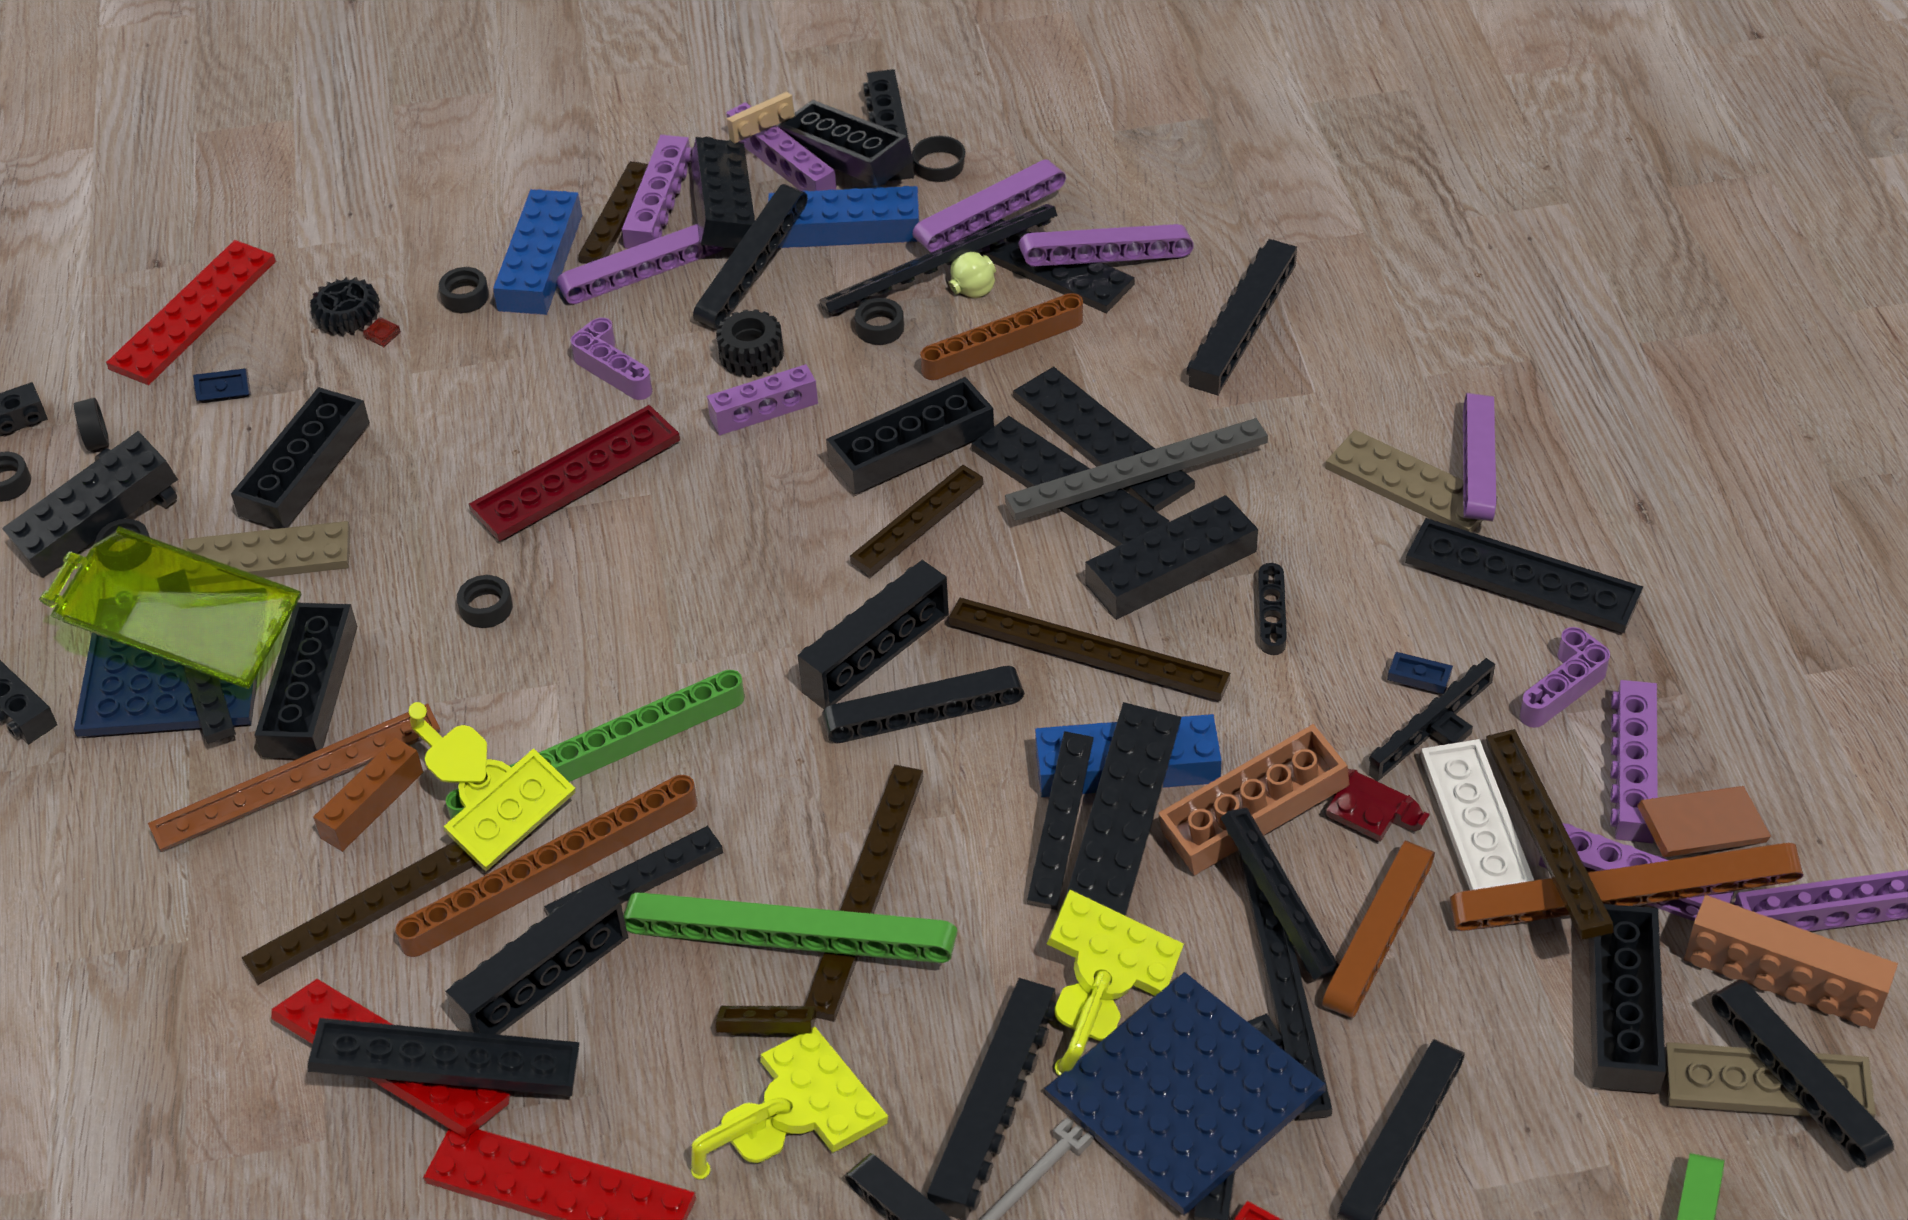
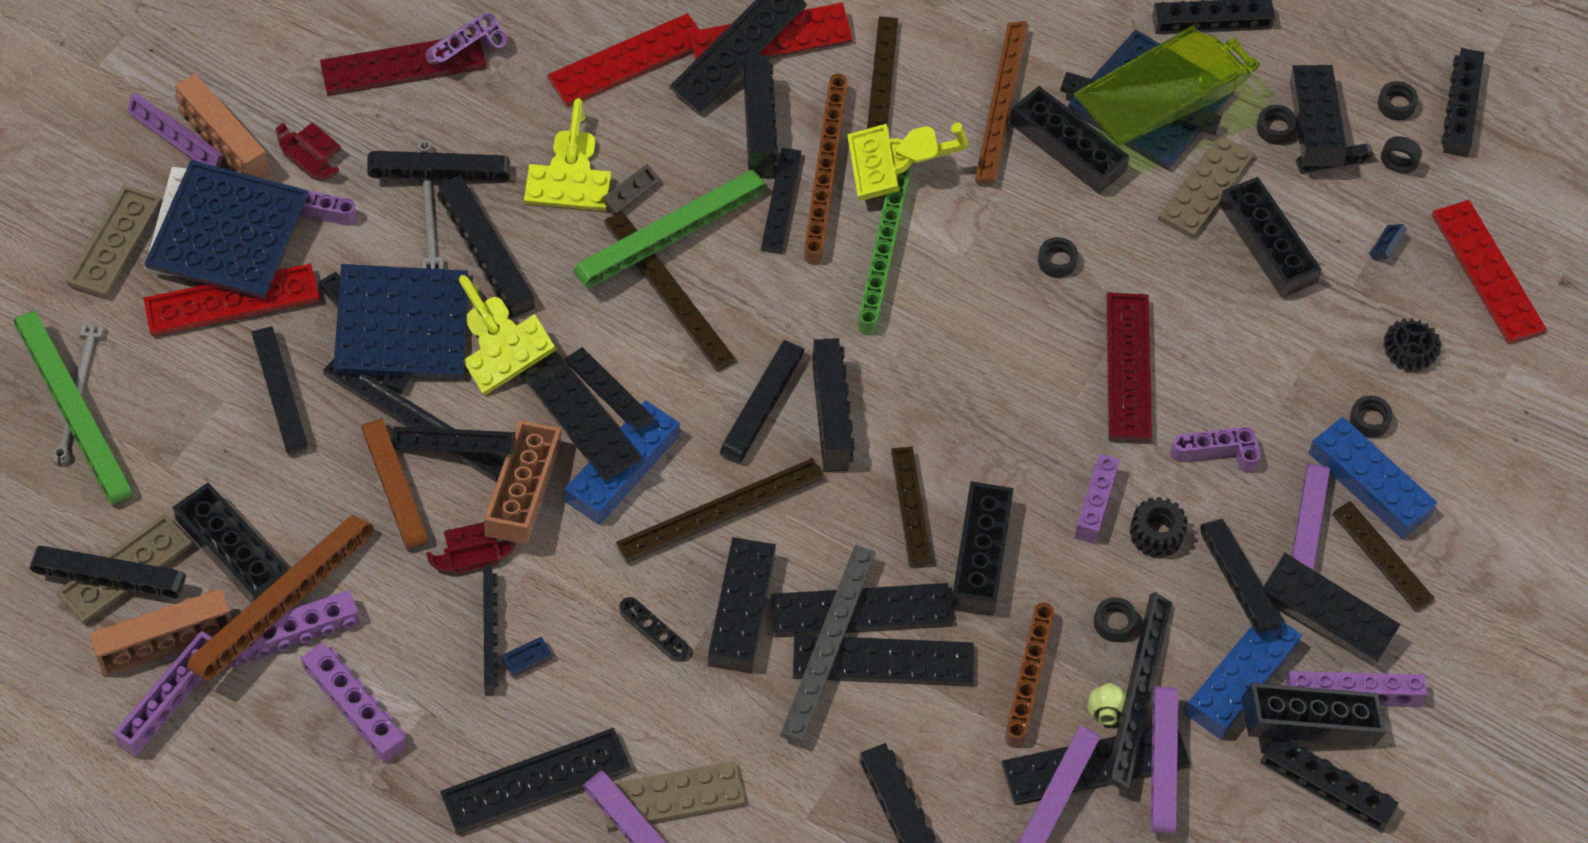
camera: 125 degrees right, 10 degrees up
(368, 794) = (951, 111): dark orange brick -> none
(381, 332) = (1371, 354): clear red tile -> none
(657, 191) = (1376, 576): medium lavender brick -> none
(760, 117) = (1382, 672): tan plate -> none
(939, 144) = (1269, 767): black tyre -> none
(1451, 729) = (472, 634): black plate -> none
(1475, 815) = (406, 591): white plate -> none
(1550, 835) = (351, 589): dark brown plate -> none
(1583, 667) = (440, 718): medium lavender beam -> none
(1703, 821) = (279, 686): dark orange tile -> none

